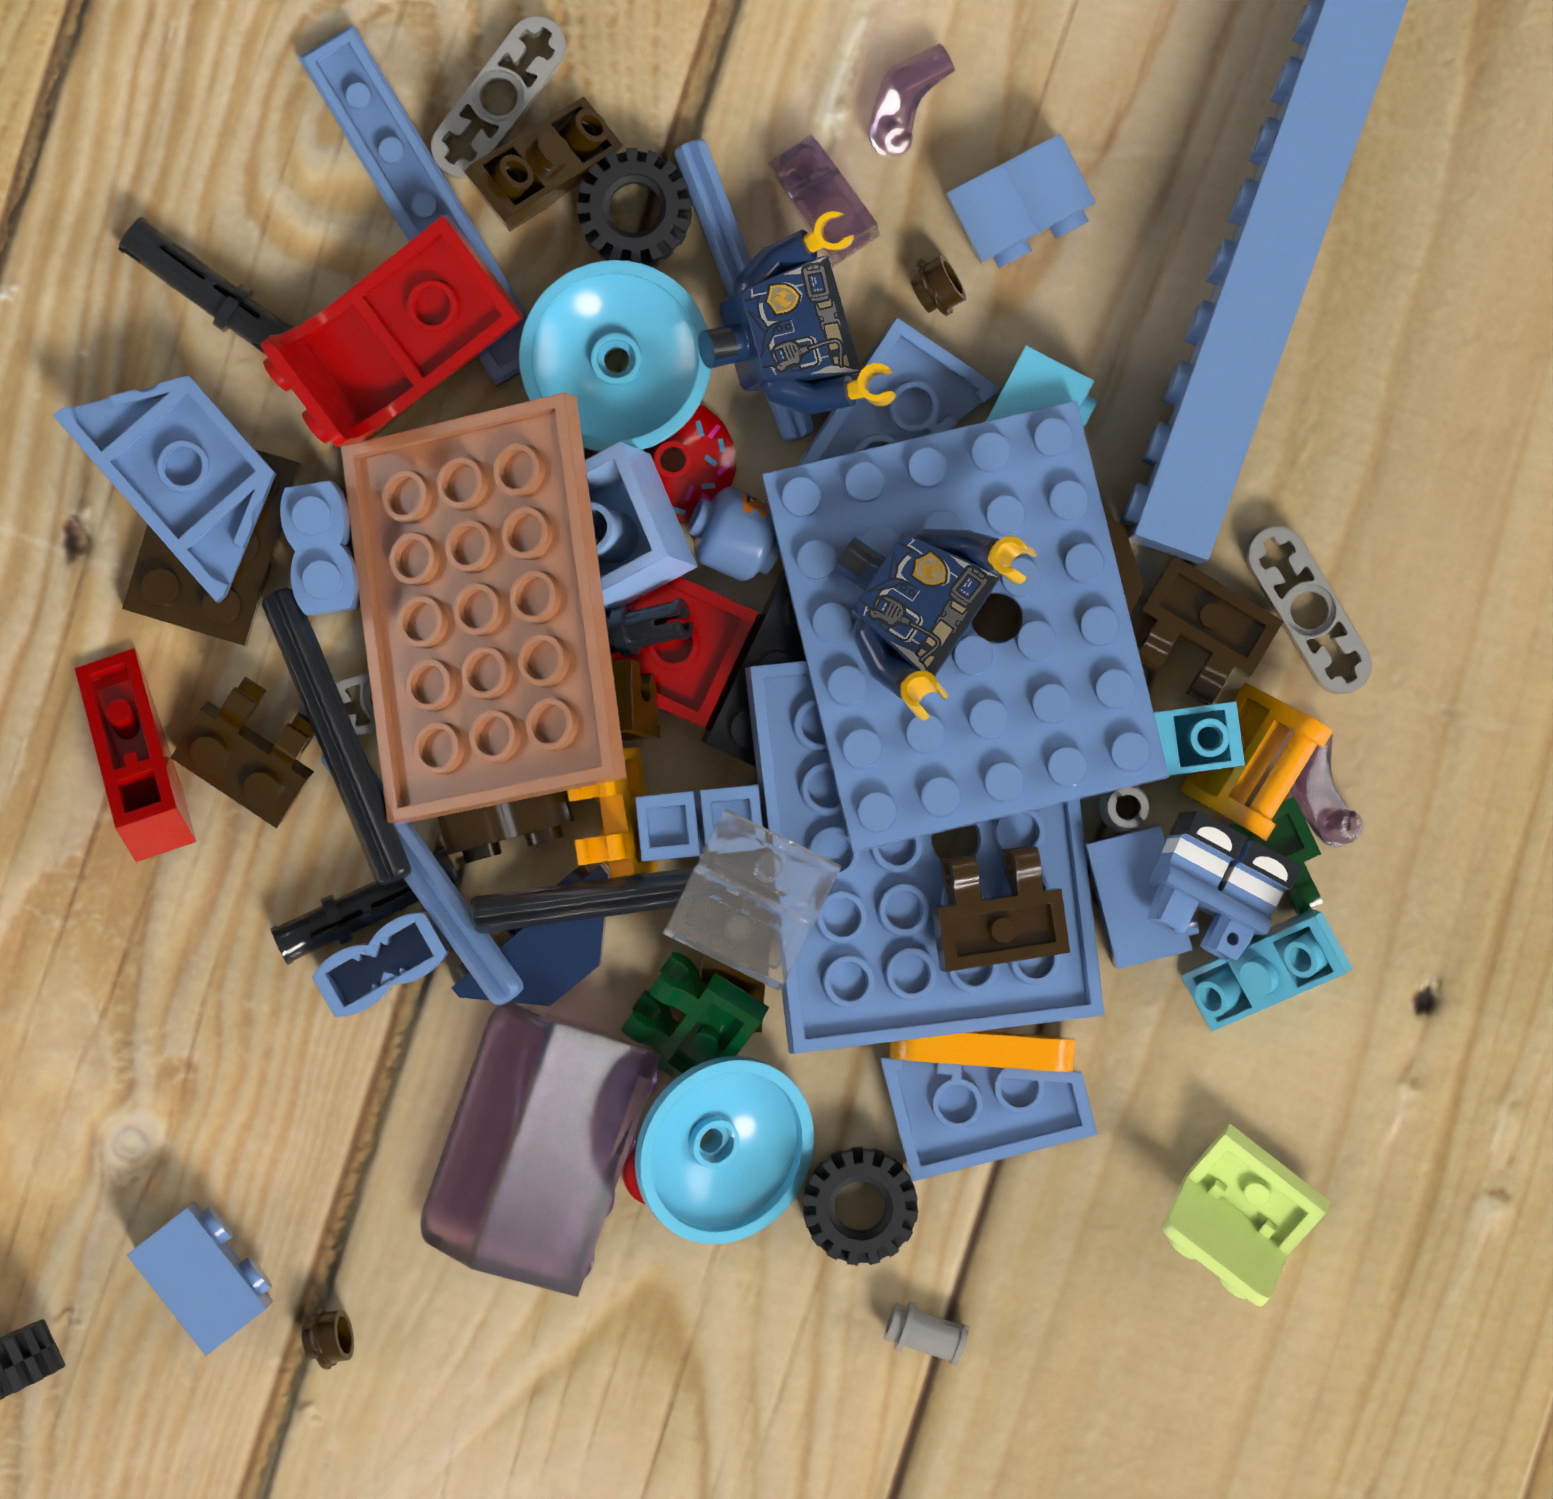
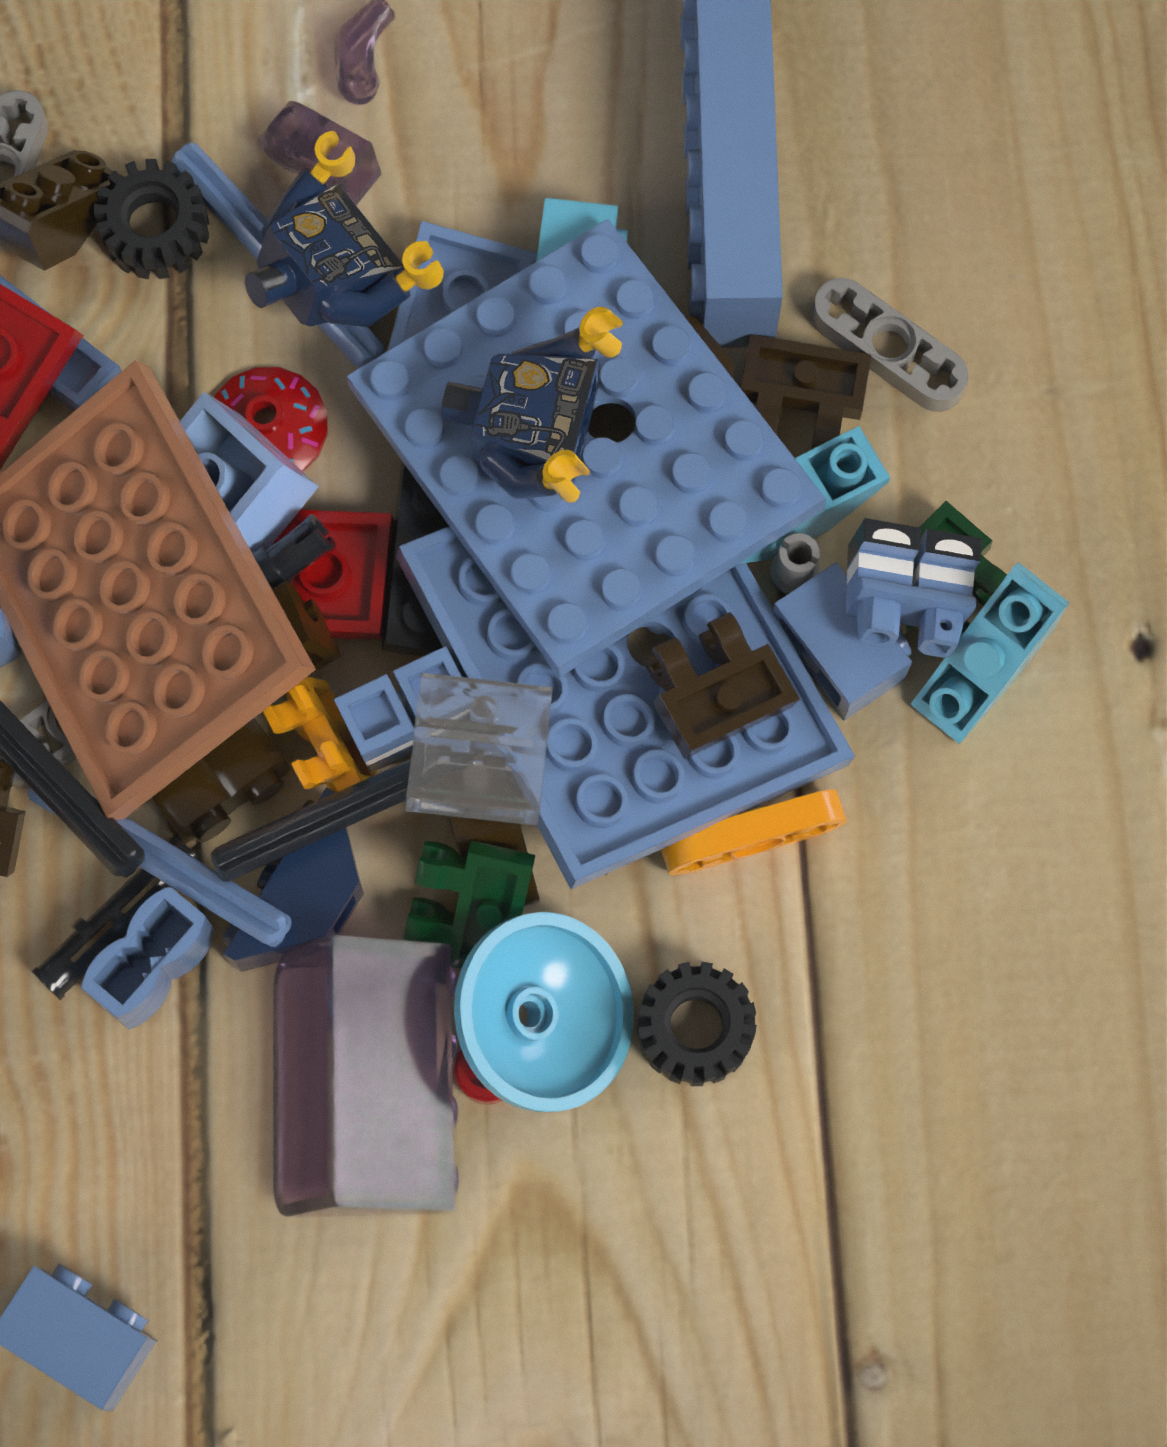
camera: 20 degrees left, 15 degrees down
(328, 1337) = (222, 1351): dark brown plate -> none
(628, 310) = (176, 304): medium azure dish -> none
(734, 534) = (346, 456): medium blue head -> none
(925, 1333) = (807, 1123): light grey pin -> none
(938, 286) = (448, 190): dark brown plate -> none
(981, 1113) = (775, 895): medium blue wing -> none
(1021, 201) = (494, 93): medium blue brick -> none
(1242, 1215) = (1062, 887): yellowish green bracket -> none
(1263, 727) = (895, 445): light orange plate -> none
(1322, 803) = (956, 484): arm -> none

